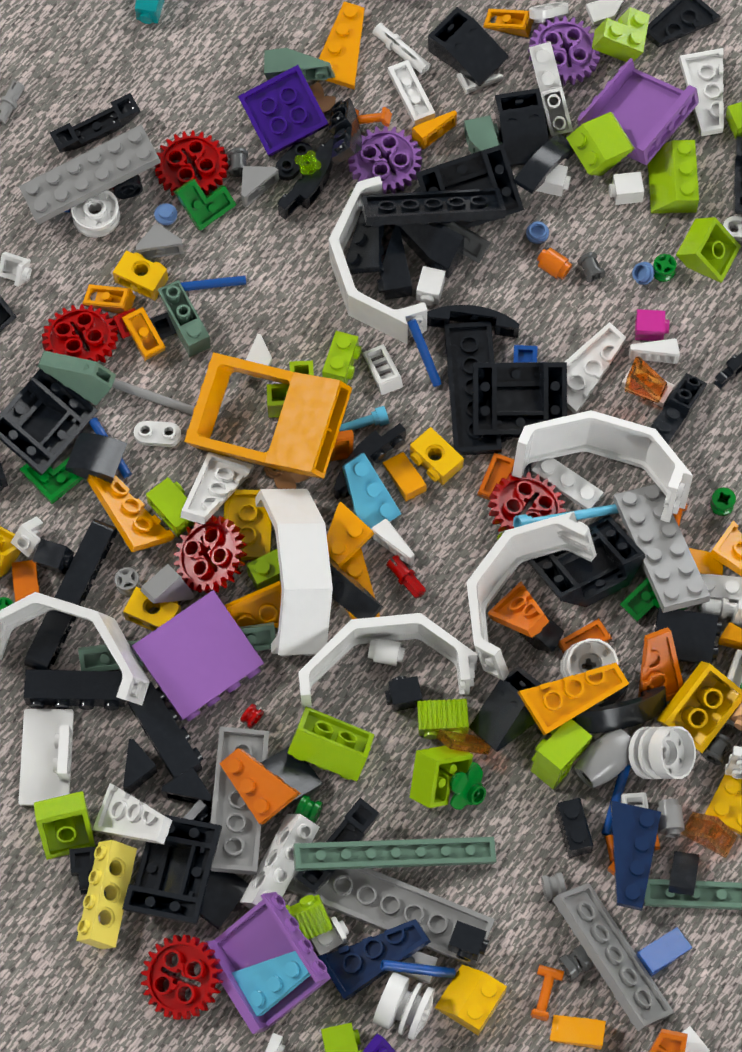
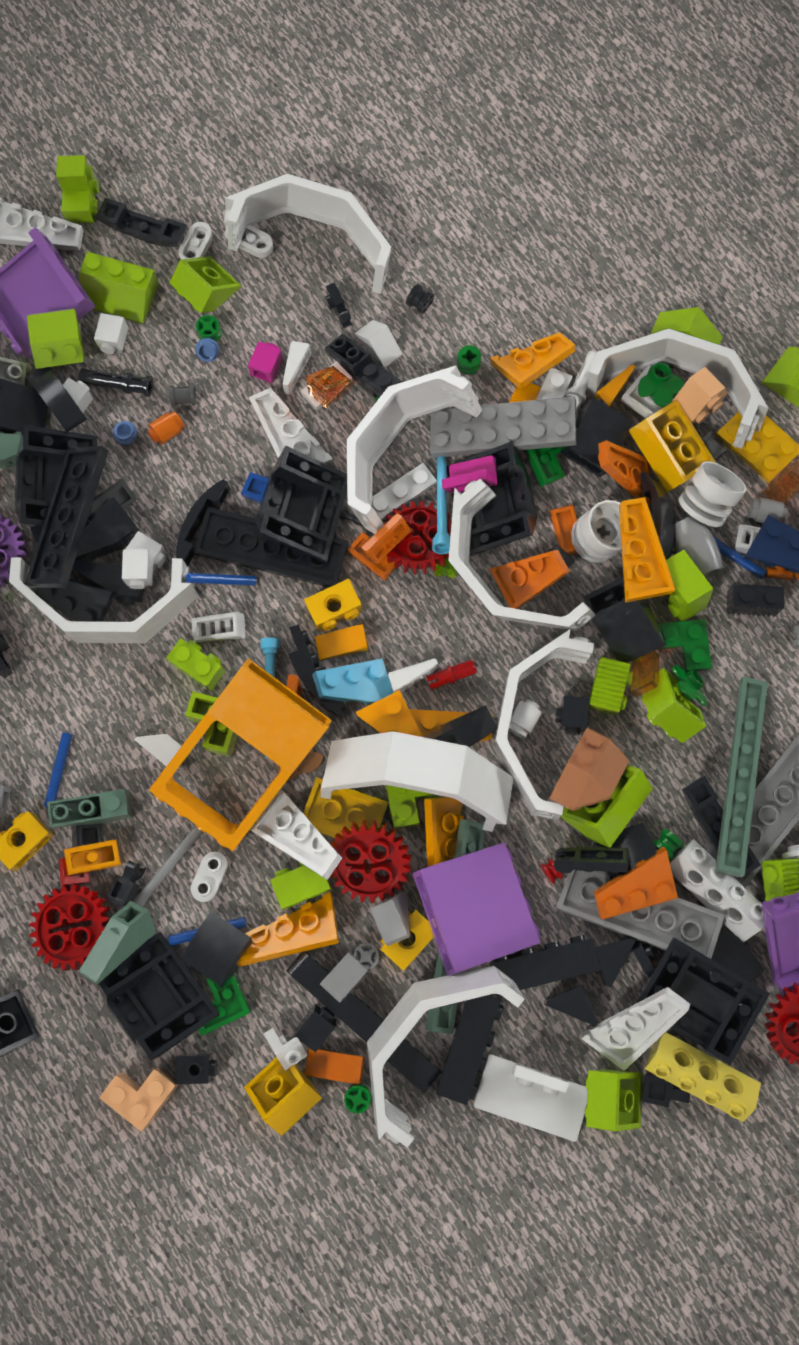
camera: 70 degrees left, 10 degrees up
(101, 562) = (344, 977): none -> light grey slope
(110, 298) = (35, 882): light orange slope -> none
(127, 367) = (123, 888): none -> black plate
(271, 740) = (592, 859): none -> black hinge
(353, 712) = (590, 772): none -> nougat wedge
(408, 279) = (137, 568): none -> white brick
(510, 475) = (386, 538): none -> orange plate
(518, 779) = (692, 639): none -> green plate
(585, 217) = (126, 382): none -> black pin
(604, 533) = (465, 472): none -> dark pink panel
(709, 418) = (379, 342): none -> white slope

